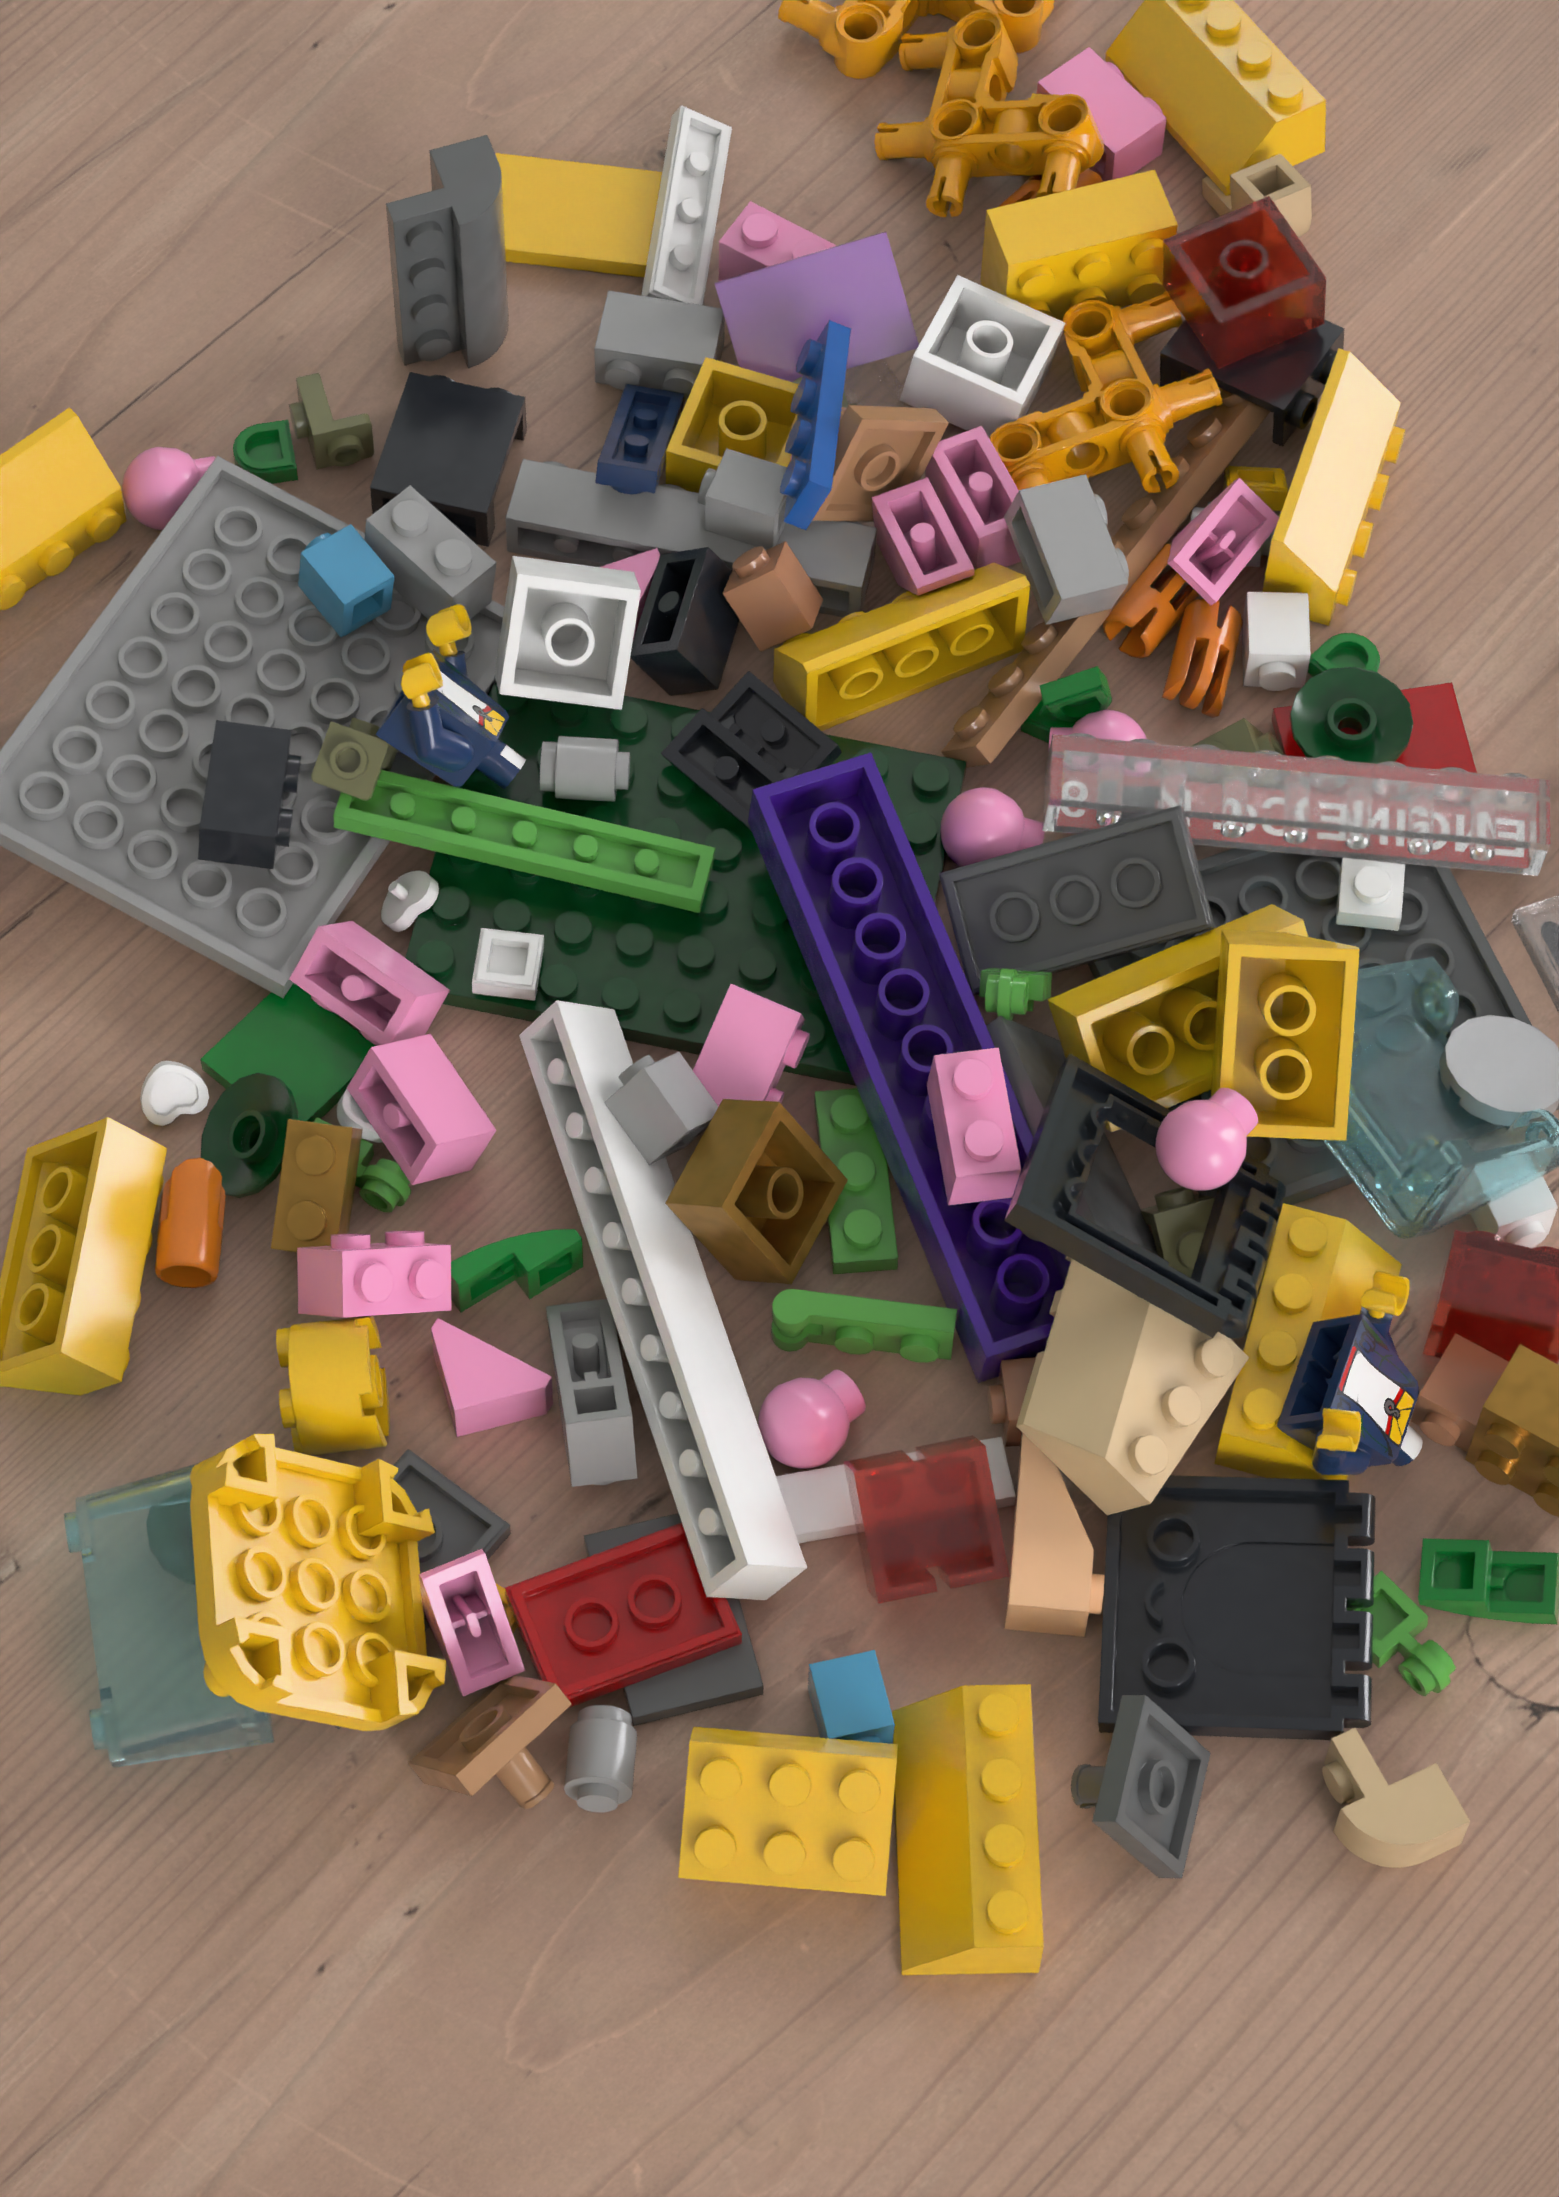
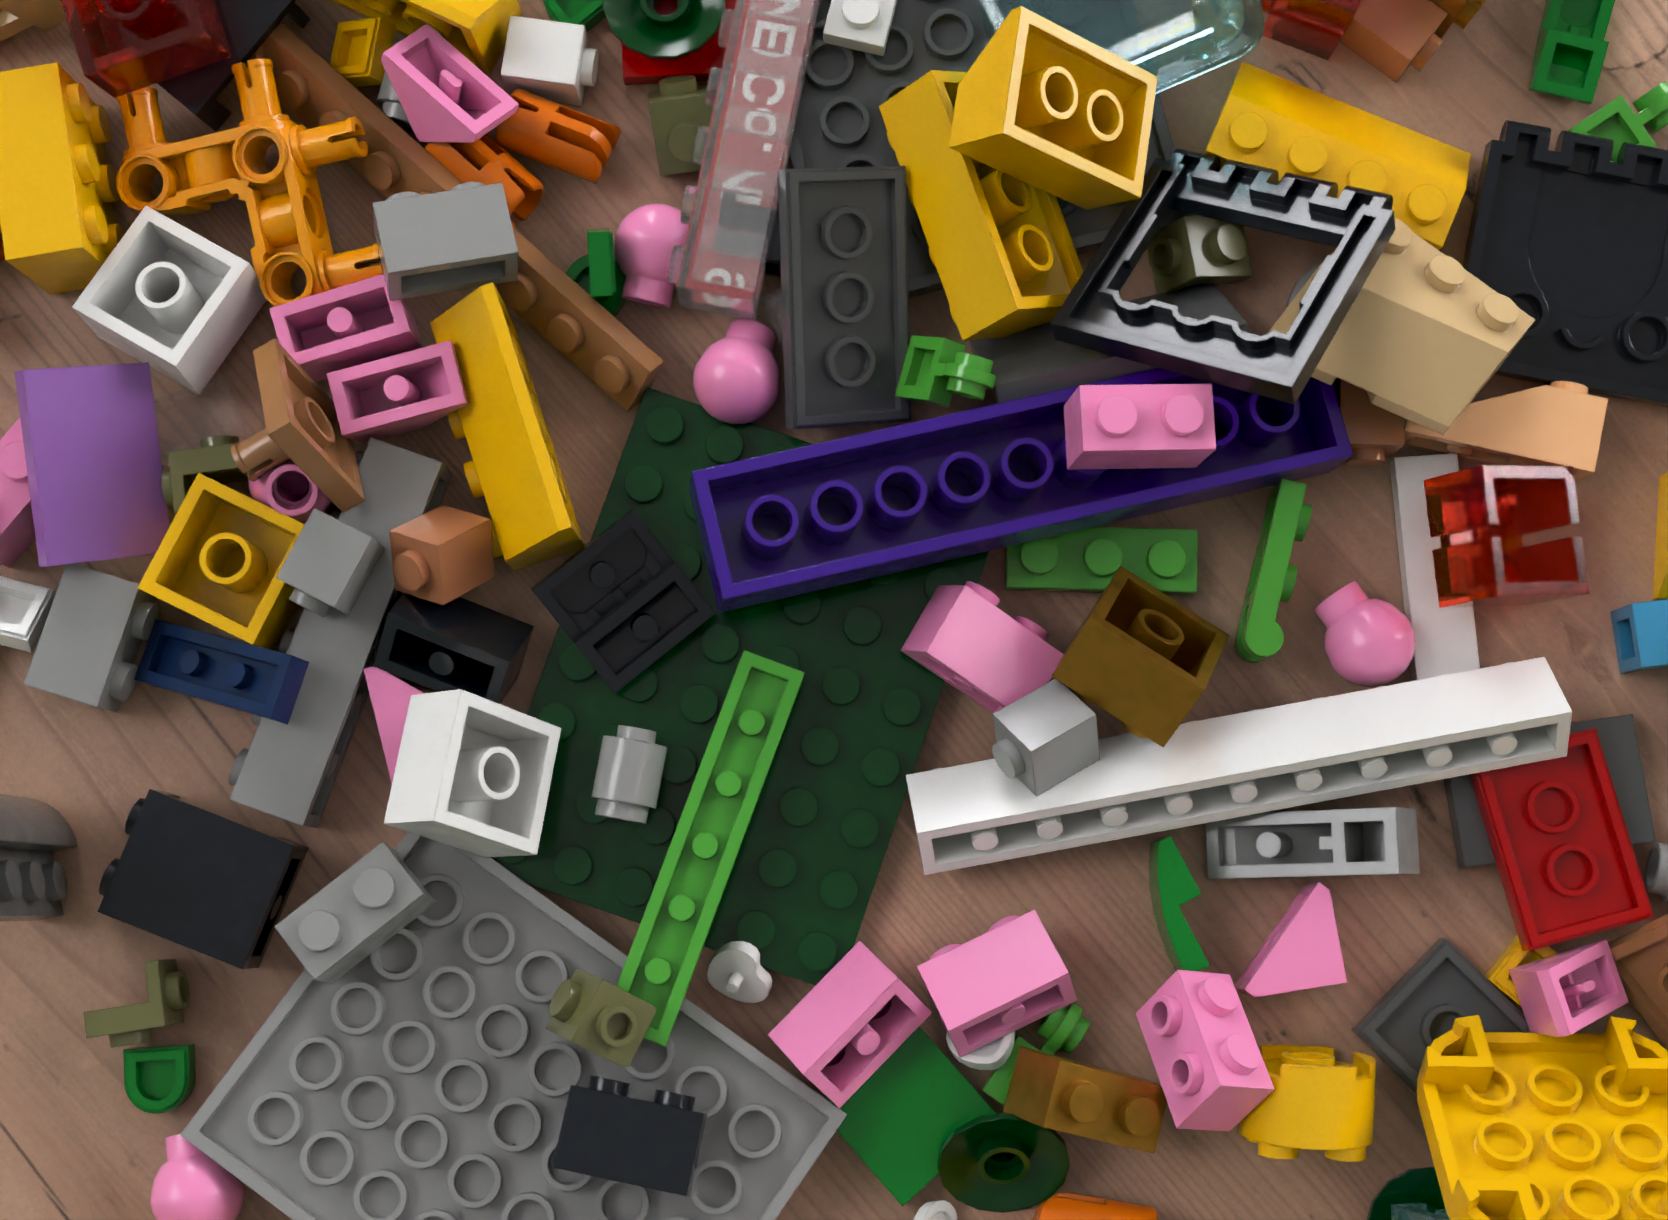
camera: 80 degrees left, 20 degrees up
(345, 580) = (367, 1008): dark azure brick -> none
(445, 716) = (563, 917): dark blue torso -> none
(508, 964) = (841, 877): white tile -> none
(816, 430) = (267, 475): blue plate -> none
(1206, 1140) = (1173, 204): bright pink piece -> none
(1353, 1390) = (1420, 118): torso -> none

